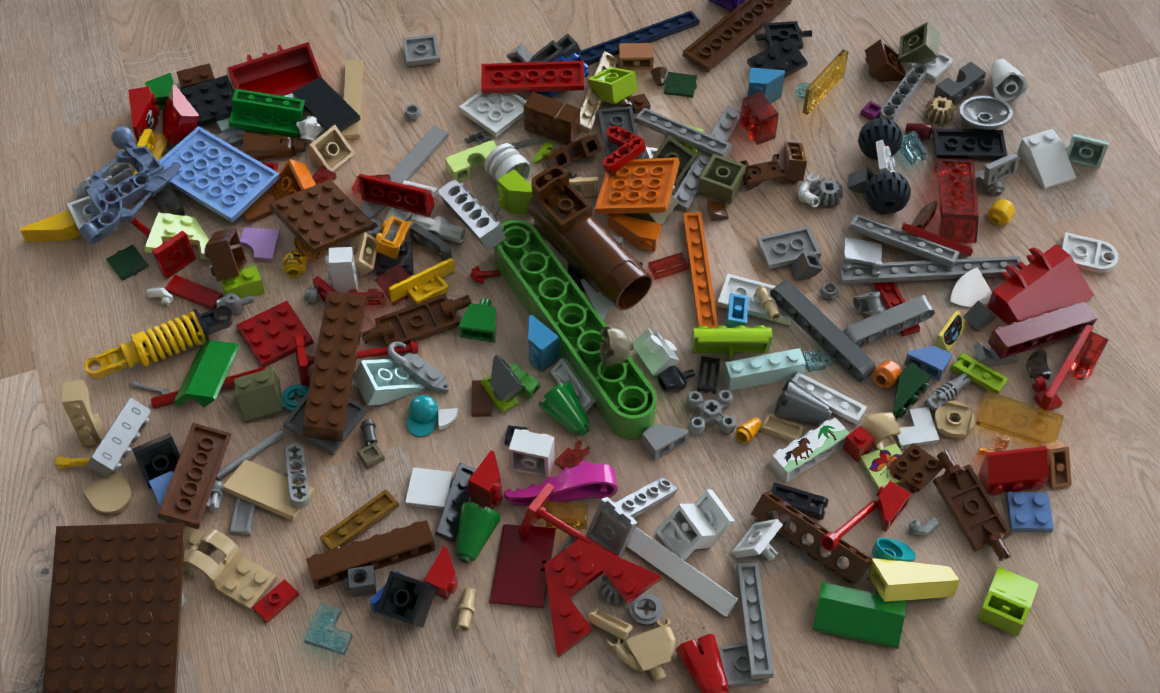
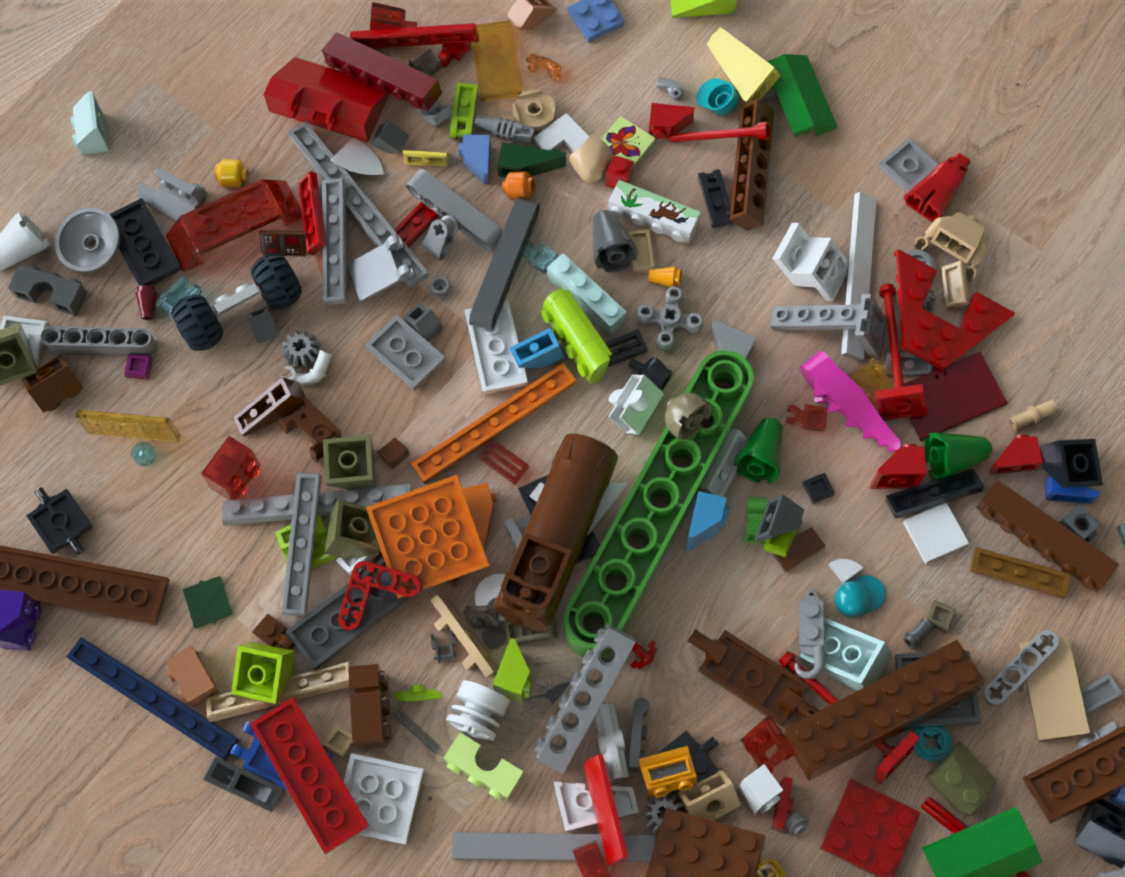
camera: 120 degrees left, 15 degrees up
(250, 454) = (1022, 740): light grey bar -> none
(390, 278) = (719, 734): clear red piece -> none
(424, 284) = (701, 696): yellow bracket -> none
(473, 137) = (431, 788): dark grey piece -> none
(479, 322) = (708, 608): green torso -> none
(519, 55) = (275, 819): light grey slope -> none
(531, 453) = (839, 448): white brick -> none
(573, 151) = (387, 646): reddish brown arch -> none
(659, 74) = (209, 631): reddish brown rock -> none
(755, 621) = (867, 170): light grey plate -> none
(757, 540) = (788, 203): white tile -> none
(767, 81) = (178, 493): dark azure slope -> none
(768, 303) = (504, 327): tan pin -> none
(780, 57) = (114, 503): black plate -> none
(839, 403) = (581, 226): white plate -> none
(916, 467) = (614, 114): reddish brown hinge -> none
(940, 110) = (102, 293): tan gear -> none
(972, 507) = (627, 54): reddish brown plate -> none
(1014, 470) = (567, 36): red slope -> none
(1046, 158) = (123, 161): white slope -> none
(1090, 253) = (241, 82): white tile -> none

